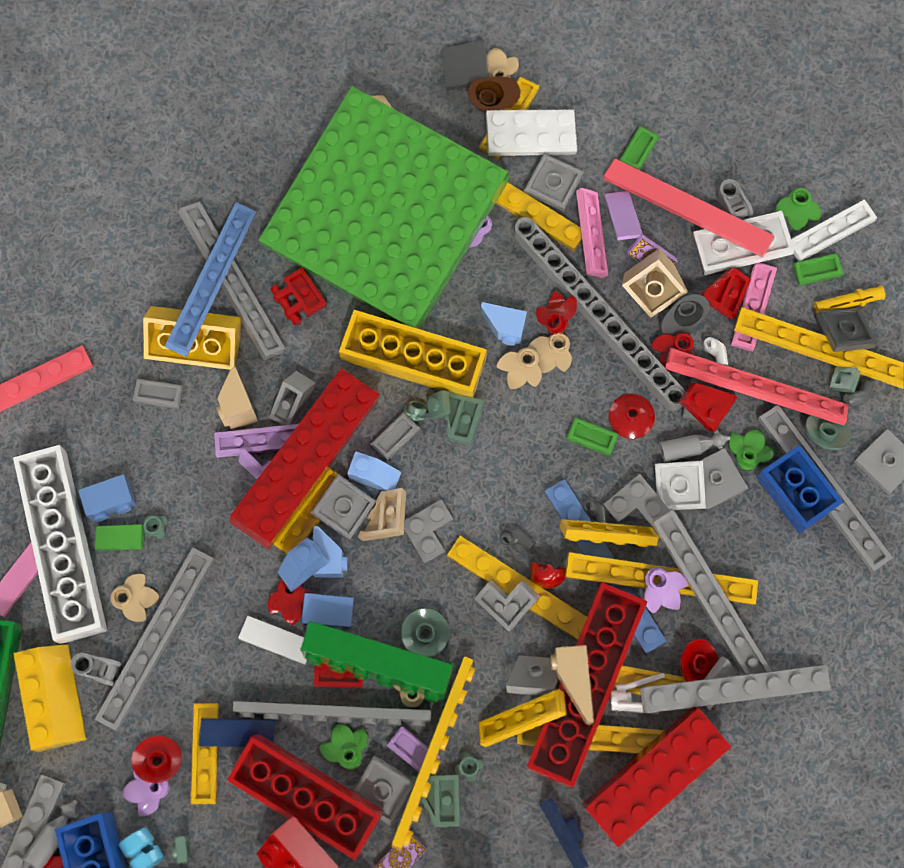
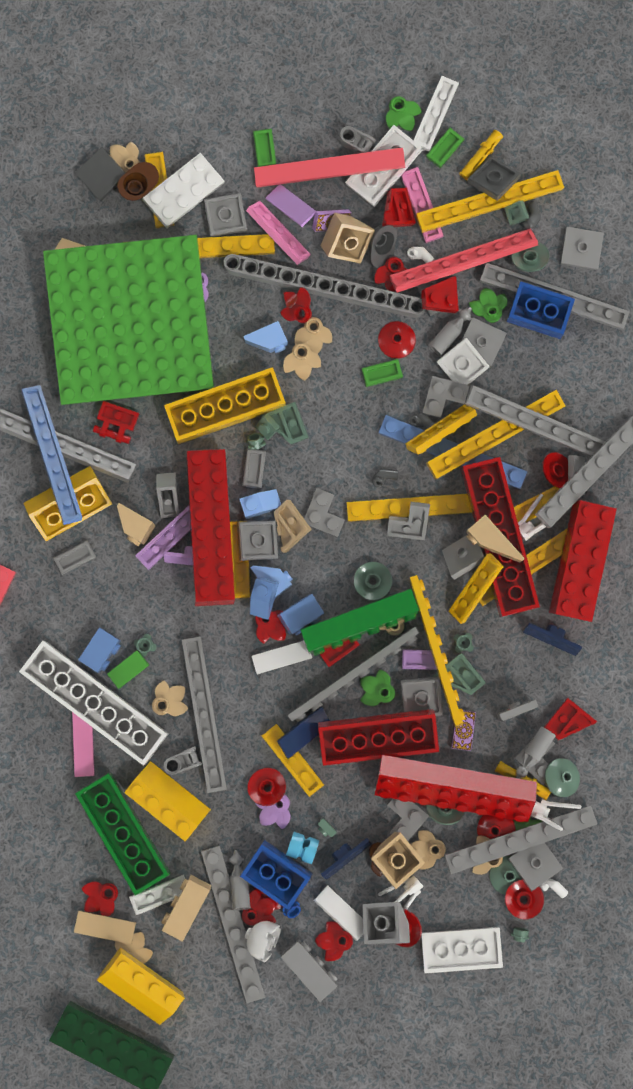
camera: 40 degrees left, 10 degrees up
(546, 575) = (422, 487): red hair -> none
(666, 591) = (505, 440): lavender plate -> none

